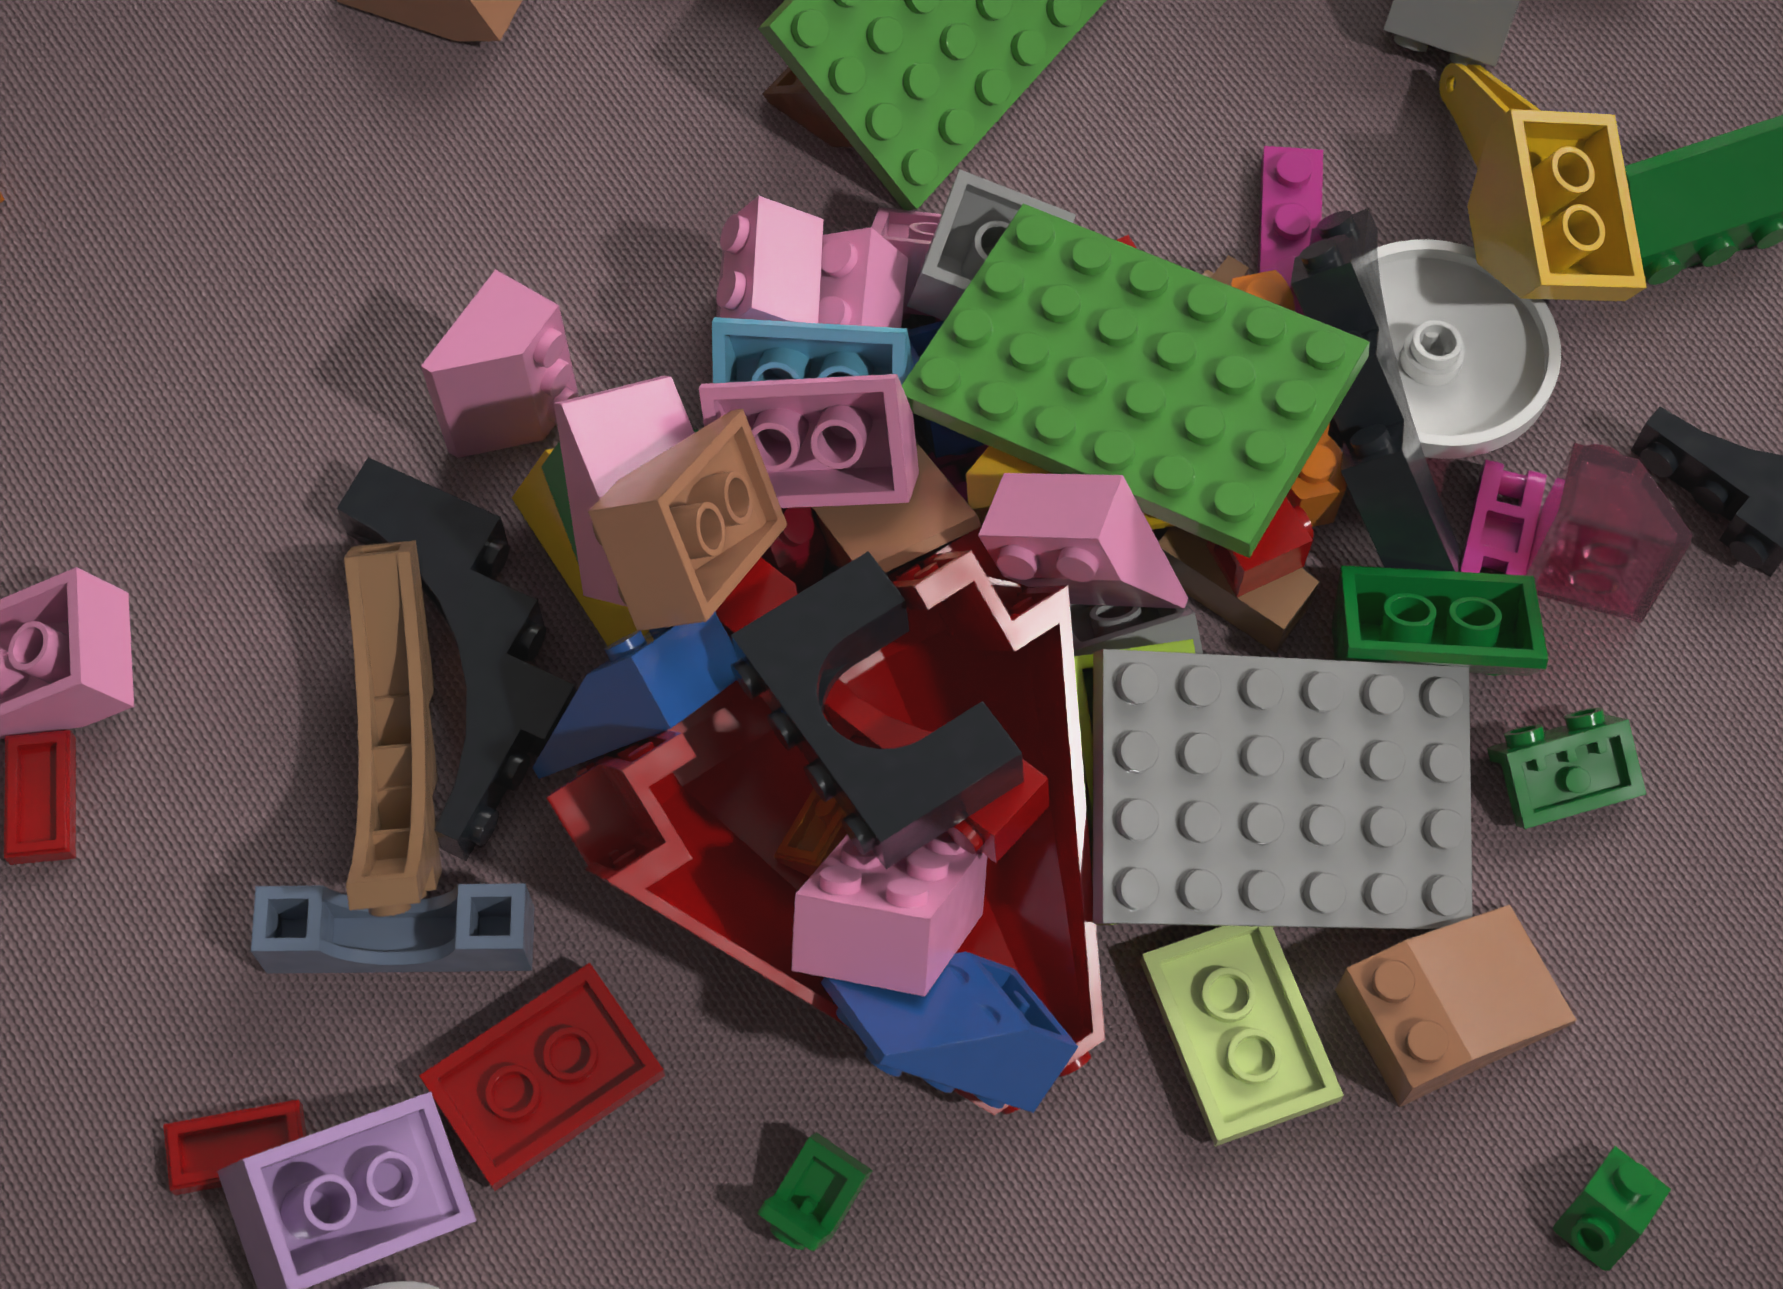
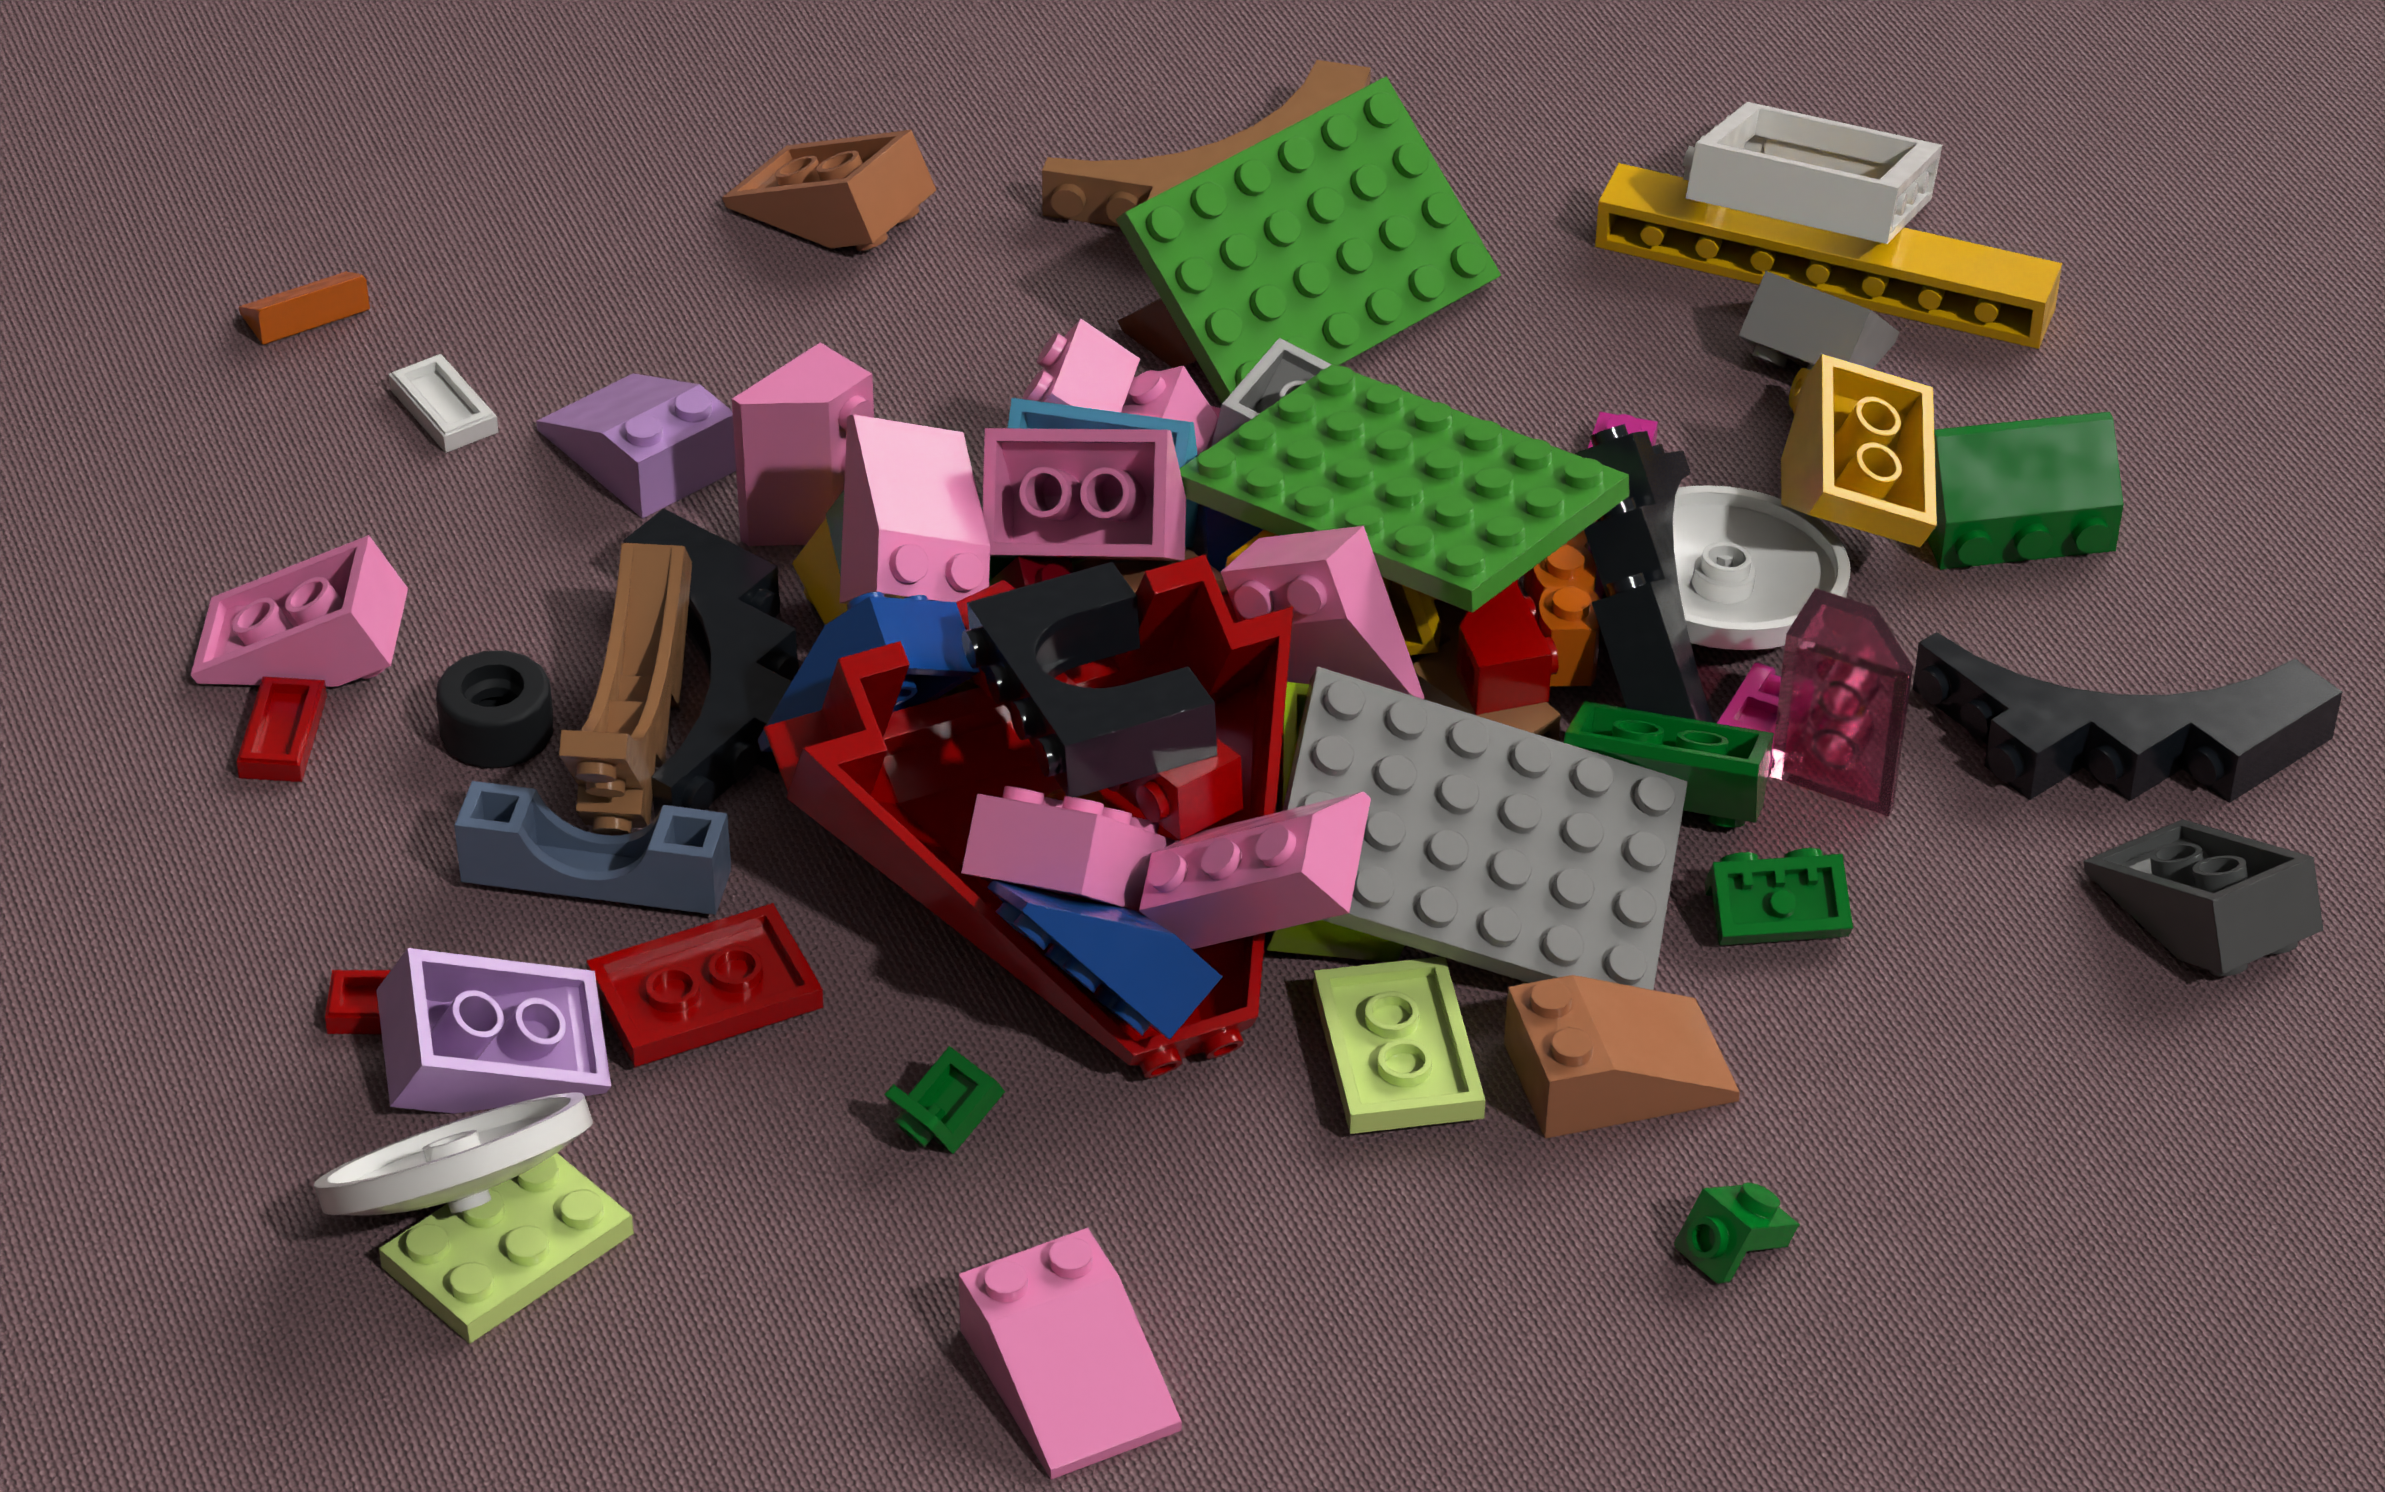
camera: 10 degrees right, 25 degrees down
(108, 321) = (443, 403): none -> white tile
(232, 712) = (494, 709): none -> black tyre
(322, 339) = (647, 439): none -> lavender slope
(689, 524) = (950, 519): nougat slope -> none
(1092, 904) = (1258, 873): none -> bright pink slope

